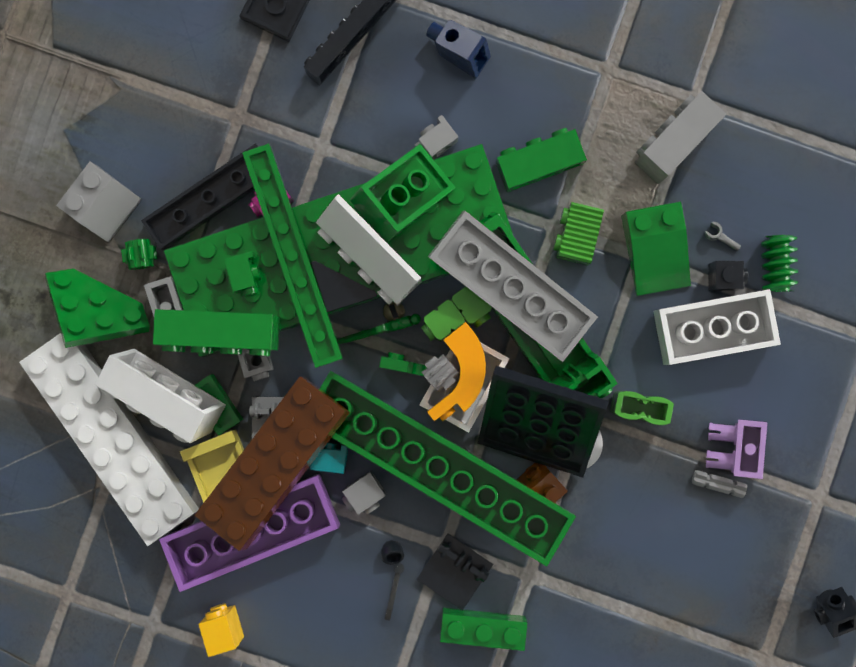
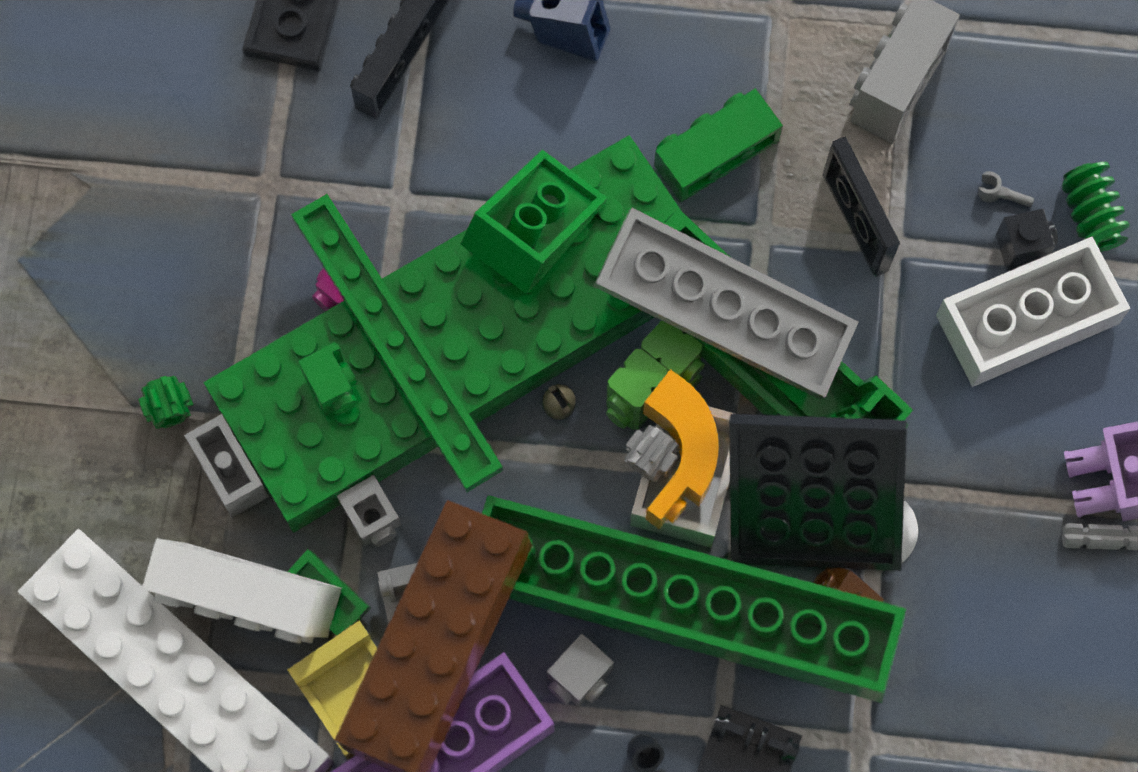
camera: 15 degrees left, 15 degrees down
(91, 310) = (112, 496): green plate -> none
(99, 202) = (91, 342): light grey slope -> none
(200, 202) = (243, 308): black piece -> none
(213, 330) = (309, 464): green brick -> none
(331, 459) = (517, 632): teal brick -> none
(338, 289) = (476, 374): black tile -> none
(368, 251) = (505, 304): white slope -> none
(388, 327) = (558, 419): green piece -> none
(396, 362) = (583, 472): green plate -> none
(437, 138) = (568, 143): light grey brick -> none
(579, 233) = (800, 231): bright green brick -> none
(622, 229) = (860, 207): none -> black tile
(646, 408) = (947, 447): bright green brick -> none
(657, 248) = (927, 223): green slope -> none

